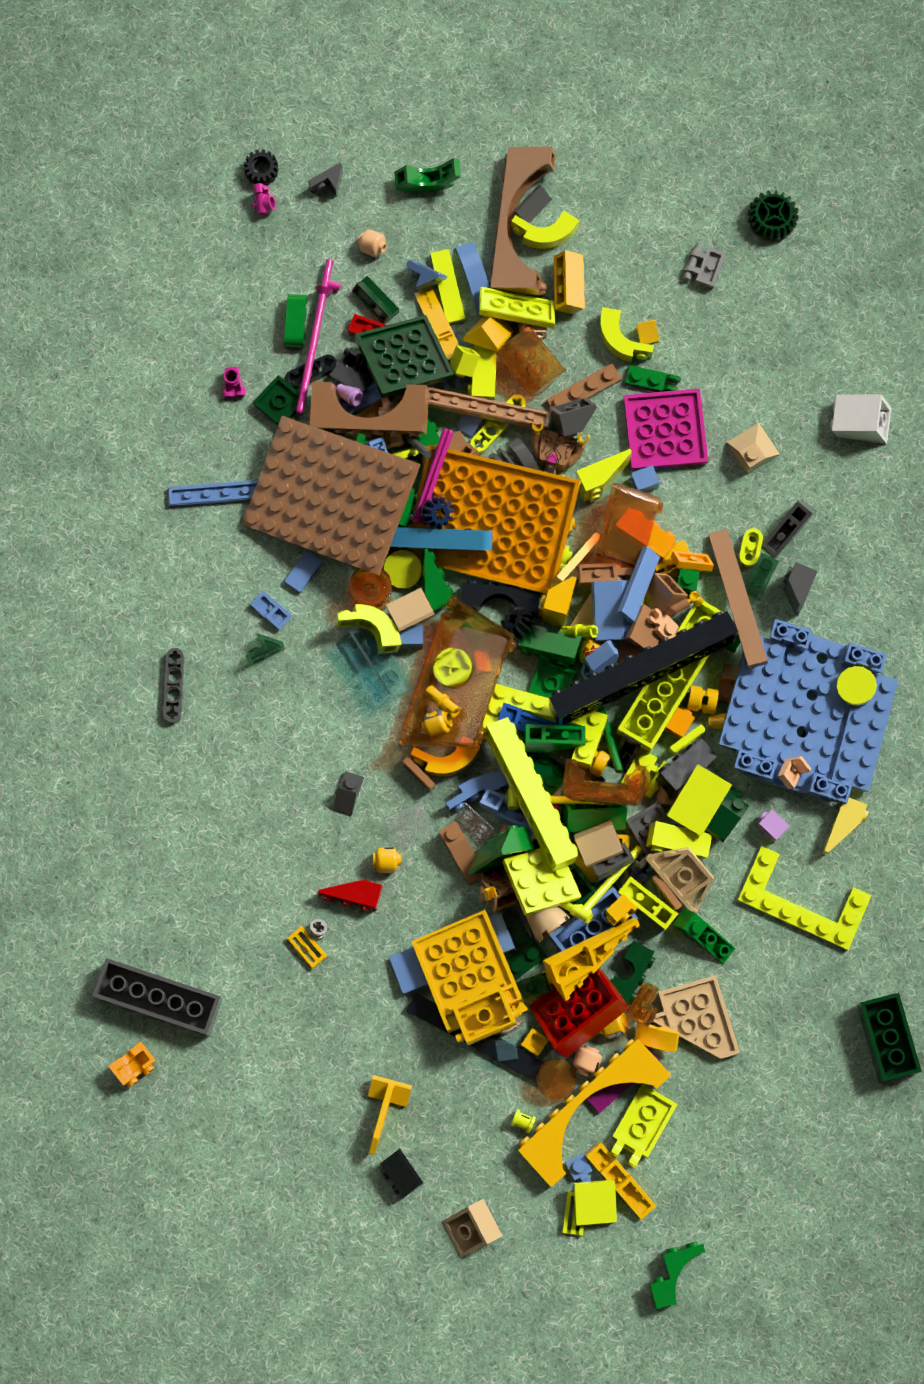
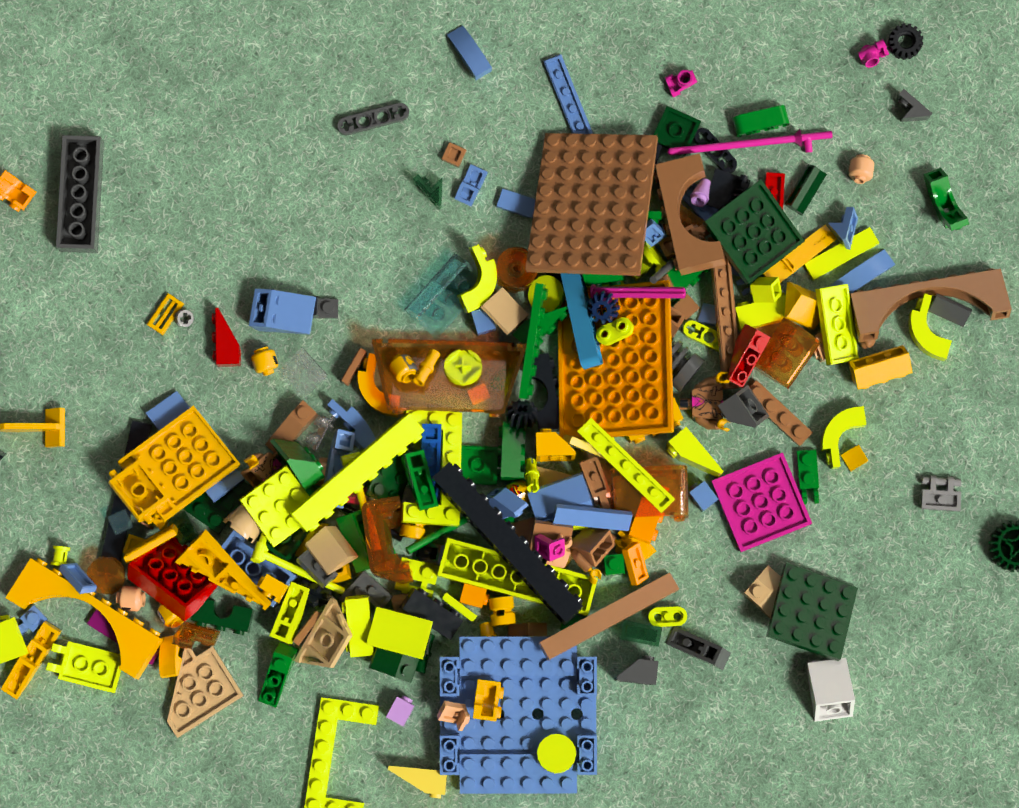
camera: 75 degrees right, 5 degrees up
(137, 572) = (469, 52): none -> medium blue slope
(235, 618) = (454, 154): none -> medium nougat tile
(343, 826) = (282, 312): none -> medium blue slope
(442, 586) = (534, 333): none -> green plate
(465, 509) = (614, 332): none -> neon yellow plate
(520, 396) = (746, 354): none -> red slope
(539, 1022) = (150, 543): none -> yellow tile
(552, 1107) = (77, 578): none -> medium blue tile
(599, 535) = (626, 465): none -> neon yellow plate
(658, 631) = (549, 548): none -> dark pink bracket
(785, 412) = (812, 612): none -> dark green plate
(788, 735) = (486, 700): none -> yellow cylinder

